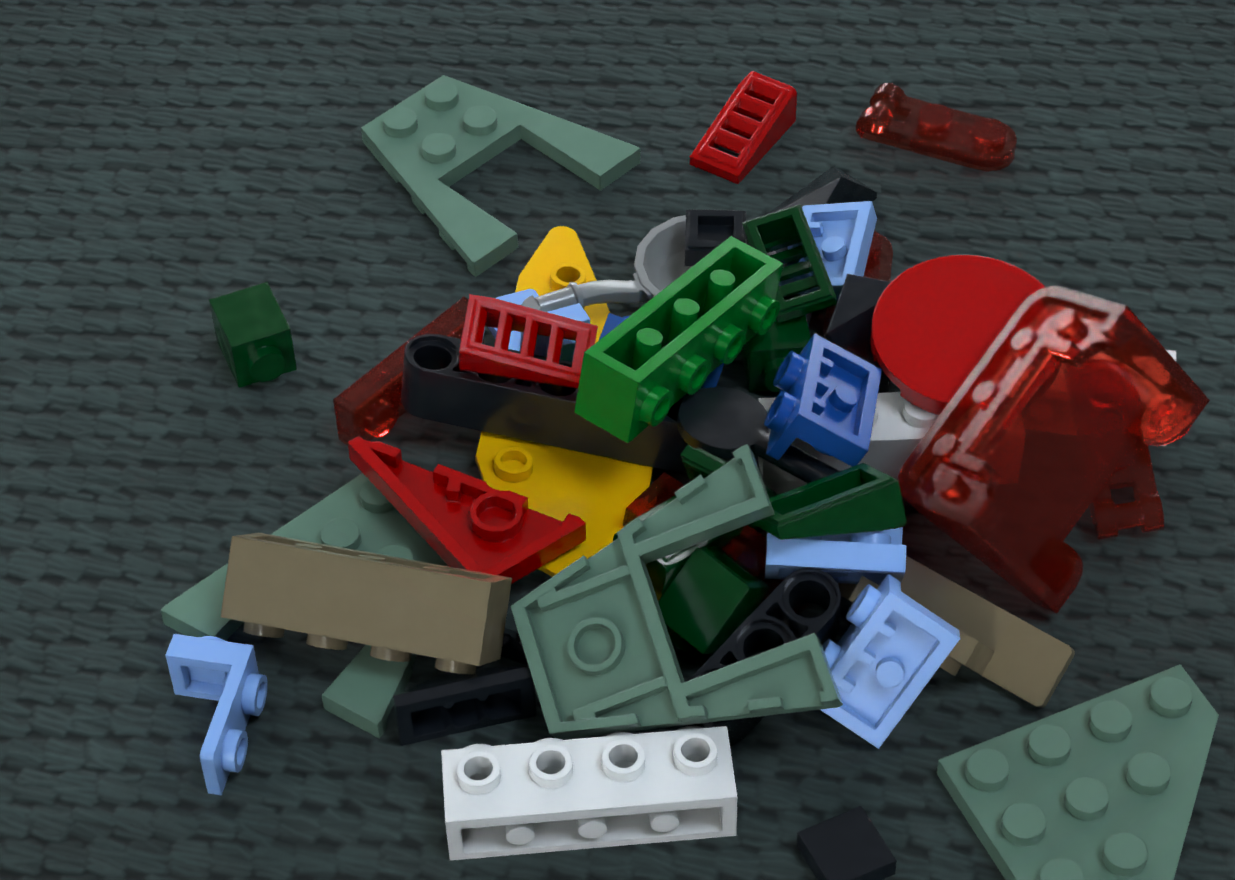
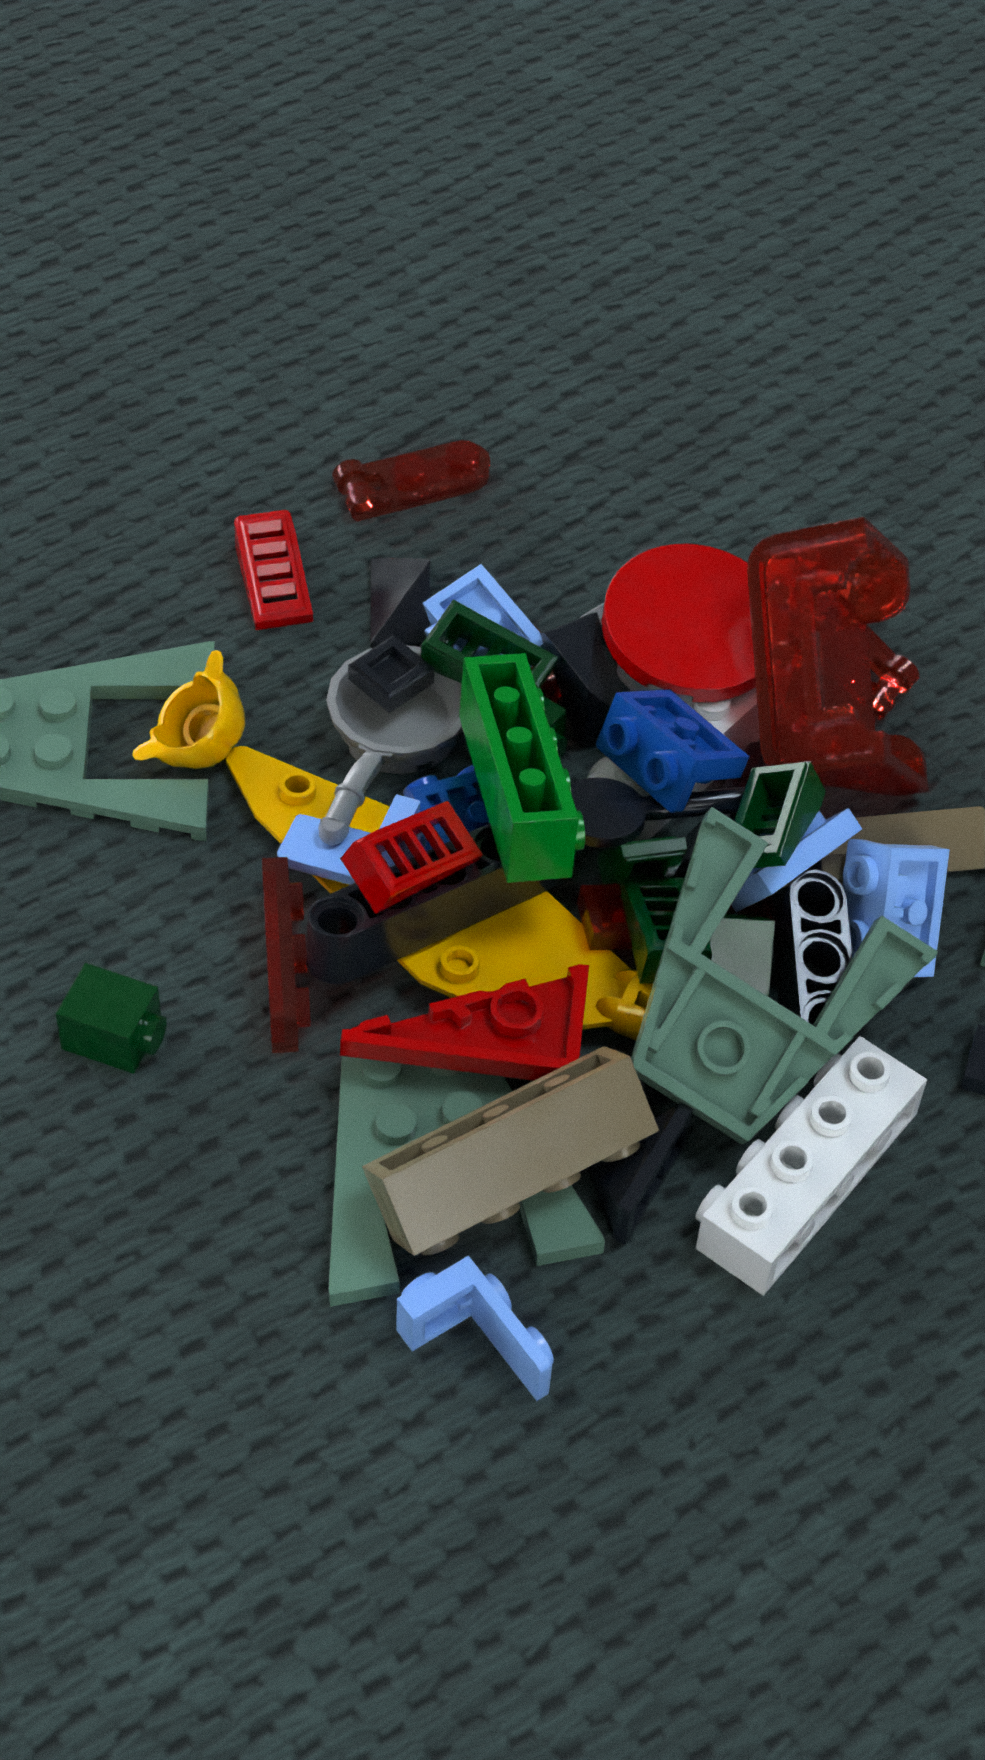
camera: 50 degrees left, 5 degrees up
(552, 194) = (197, 721): none -> yellow hair

